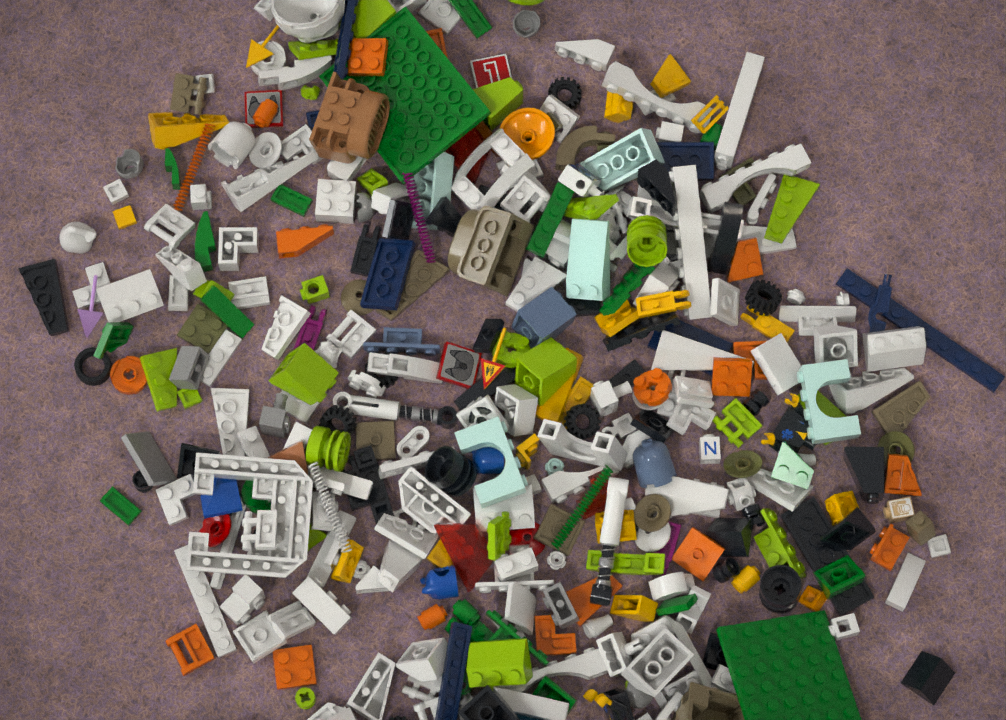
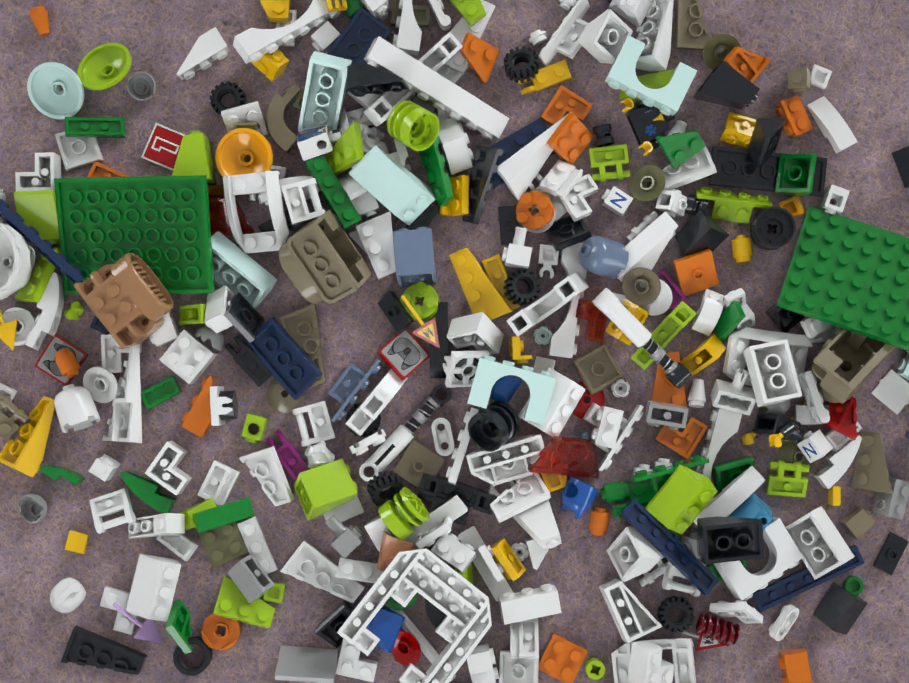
camera: 60 degrees left, 15 degrees up
(116, 191) = (49, 535): white plate -> none
(193, 166) = (72, 453): orange piece -> none
(266, 530) = (443, 617): white plate -> none
(315, 251) = (222, 405): none -> white piece
(327, 508) = (418, 537): white piece -> none
(367, 57) = (78, 242): orange plate -> none
(419, 218) = (253, 298): magenta piece -> none
(444, 217) = (268, 277): black wing -> none
(498, 536) = (577, 426): lime plate -> none
(520, 607) = (644, 448): white slope -> none
(544, 369) = (459, 287): lime slope -> none
(588, 500) = (595, 340): green piece -> none
(661, 303) = (473, 152): yellow hinge -> none
(724, 302) = (503, 98): white plate -> none
(726, 238) = (454, 56): black slope -> none
(727, 569) = (725, 259): black wheel -> none
(777, 363) = (586, 93): white piece -> none
(898, 510) = (771, 86): tan brick -> none

